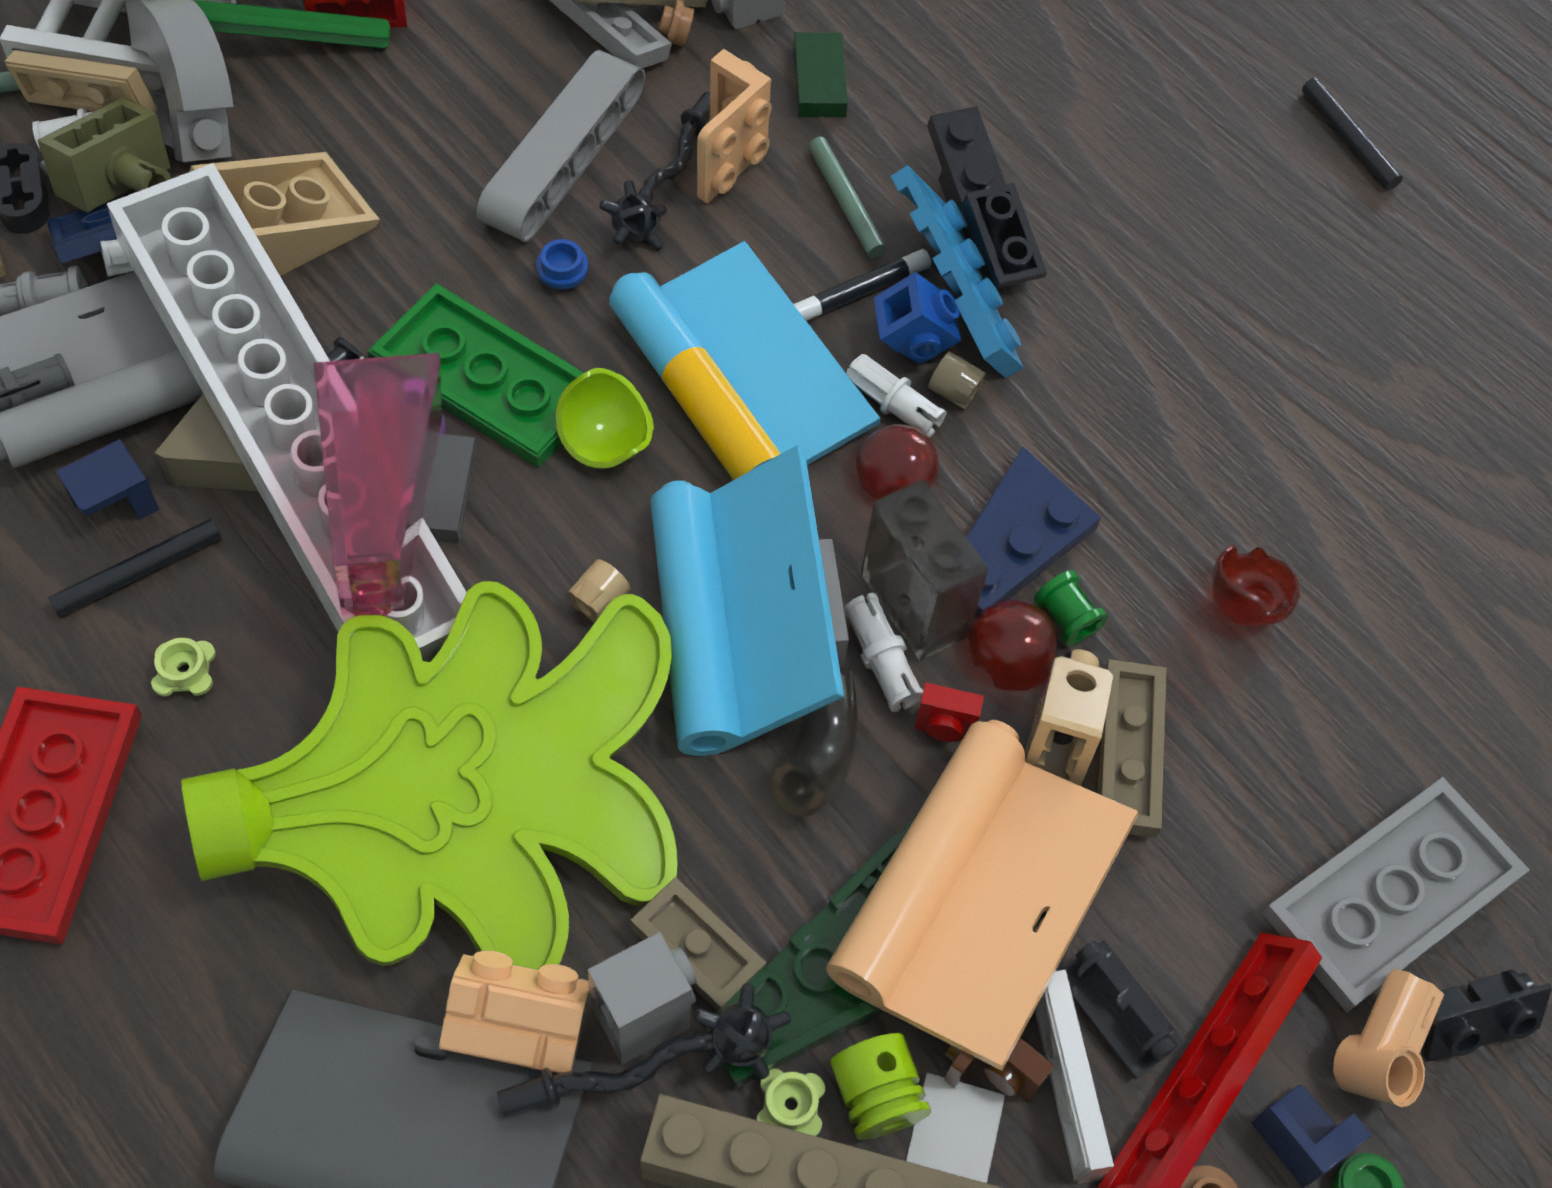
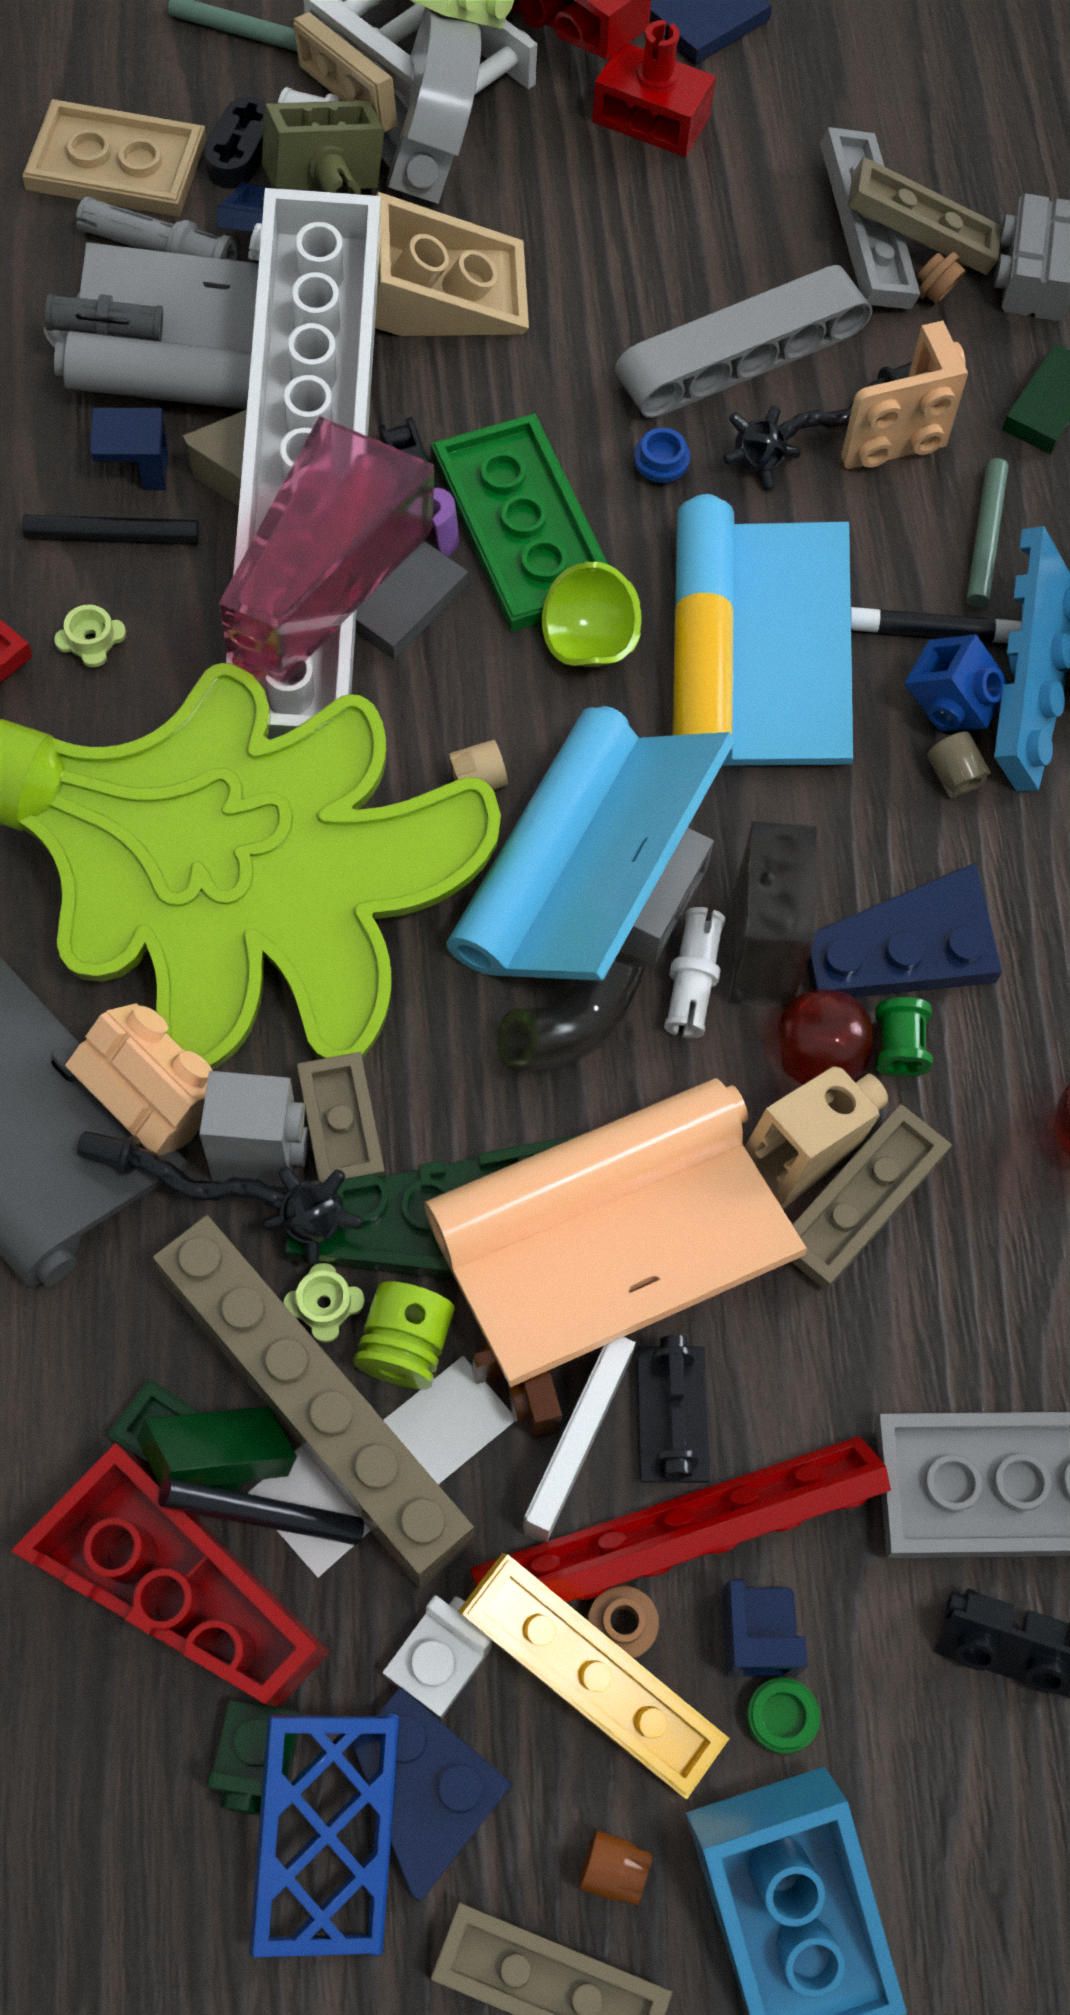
camera: 35 degrees right, 5 degrees up
(296, 24) = (571, 103): green axle -> none
(895, 395) = (886, 746): white axle -> none
(896, 459) = (844, 808): clear red hair -> none
(947, 712) = (709, 1056): red plate -> none
(1386, 1056) = (897, 1604): light nougat piece -> none

